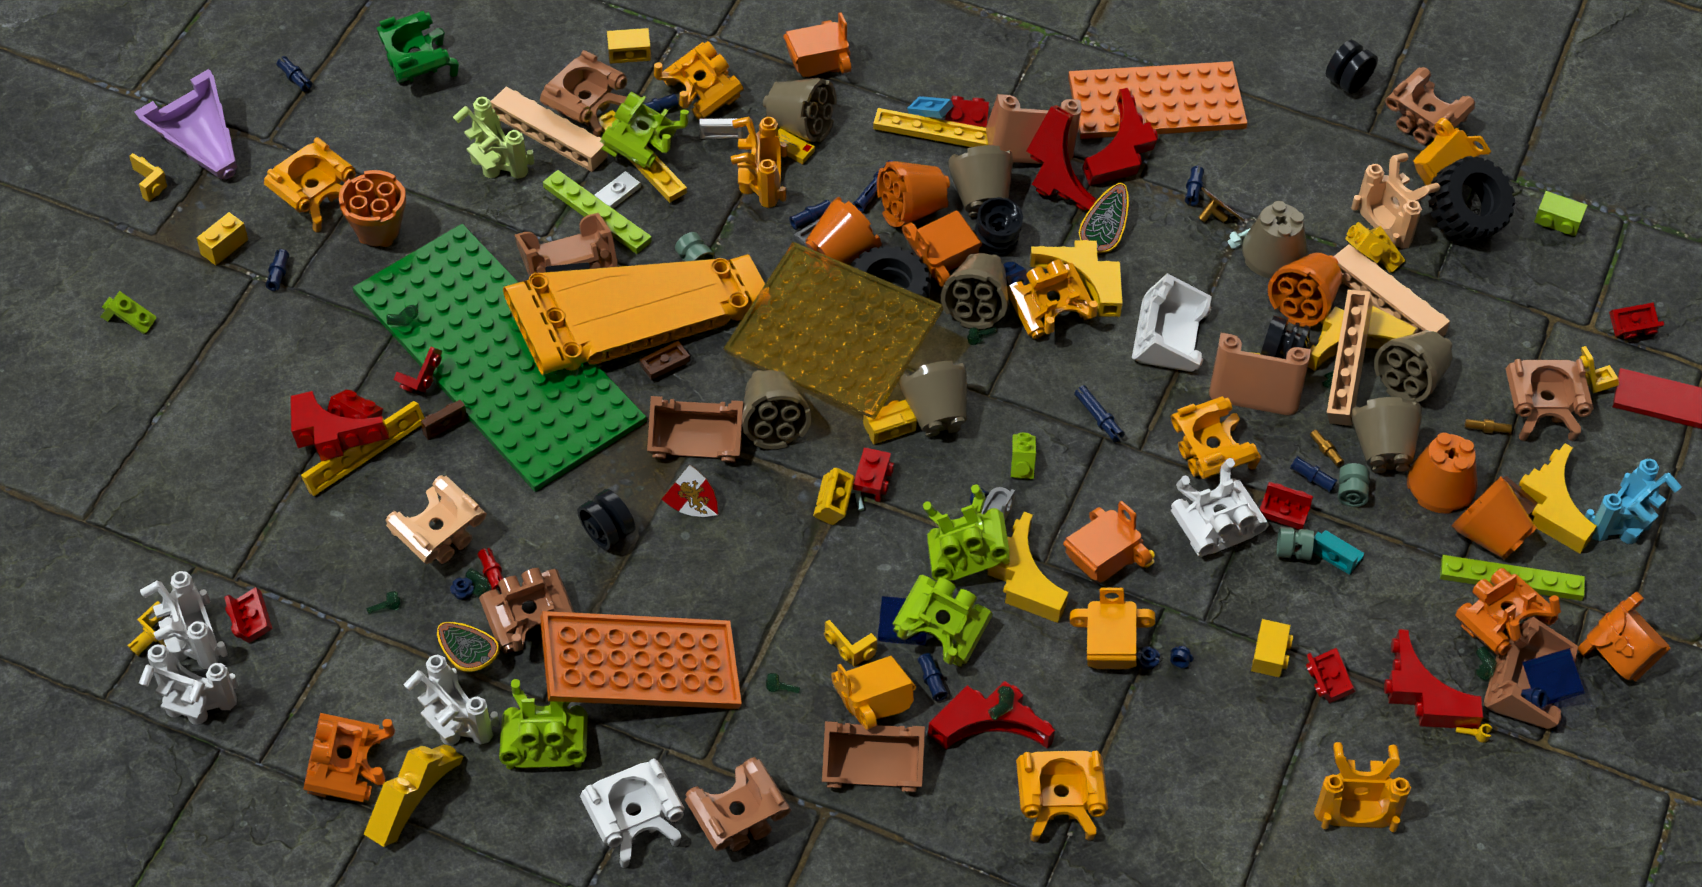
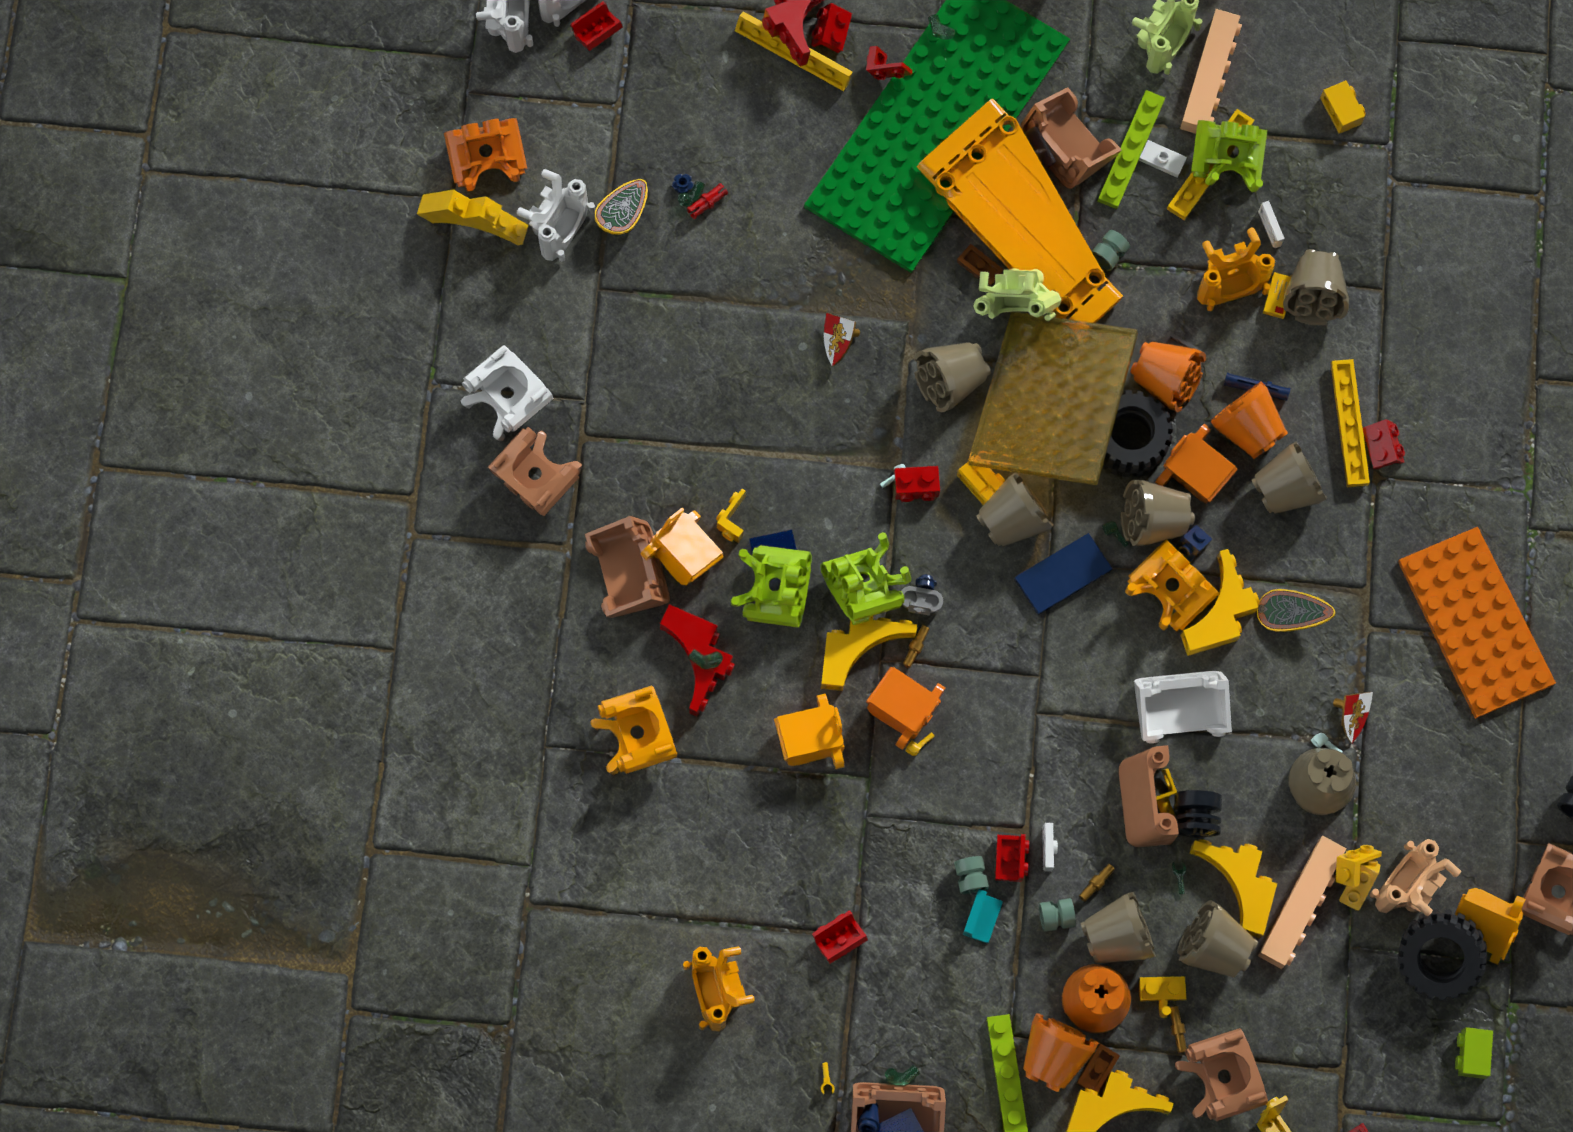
camera: 70 degrees right, 20 degrees up
(392, 603) = (650, 133): clear green hand -> none
(443, 419) = (841, 100): reddish brown plate -> none
(456, 512) = (709, 133): light nougat piece -> none
(505, 609) = (687, 257): nougat piece -> none
(542, 733) = (557, 316): lime piece -> none
(573, 85) = (1269, 76): nougat piece -> none
(606, 519) = (782, 273): black wheel -> none
(639, 660) = (645, 349): orange plate -> none
(663, 103) = (1278, 158): dark blue pin -> none
(695, 429) = (910, 312): nougat windscreen -> none
(713, 90) = (1315, 203): light orange piece -> none
(715, 321) = (1016, 292): none -> yellowish green piece
(773, 684) = (674, 467): clear green hand -> none
(810, 214) = (1198, 338): dark blue pin -> none
(820, 48) = (1401, 279): orange piece -> none
(834, 496) = (878, 456): yellow brick -> none
(930, 107) = (1371, 407): dark azure plate -> none
(932, 677) = (723, 596): dark blue pin -> none
(998, 226) = (1252, 507): black wheel -> none
(1007, 386) = (1063, 574): none -> dark blue tile
(1016, 127) = (1363, 515): nougat windscreen -> none
(1023, 455) = (988, 607): lime bracket -> none
(1043, 527) = (916, 646): none -> pearl gold bar
(1056, 173) = (1329, 547): red arch -> none
(1104, 419) = (1054, 671): dark blue pin -> none
(1122, 155) = (1405, 607): red arch -> none
(1148, 663) = (803, 779): dark blue plate -> none
(1181, 656) = (817, 803): dark blue plate -> none
(1194, 185) = (1374, 684): dark blue pin -> none
(1203, 423) = (1058, 751): light orange piece -> none
(1219, 530) = (981, 819): white piece -> none
(1271, 648) = (851, 879): yellow brick -> none
(1282, 474) = (1049, 845): none -> white plate
(1306, 288) = (1274, 819): orange cone -> none
(1313, 474) = (1060, 876): dark blue pin -> none
(1349, 357) = (1197, 876): light nougat brick -> none
(1433, 700) = (854, 1014): red arch -> none
(1447, 421) = (1162, 990): none -> yellow plate
(1488, 620) = (977, 1086): orange piece -> none

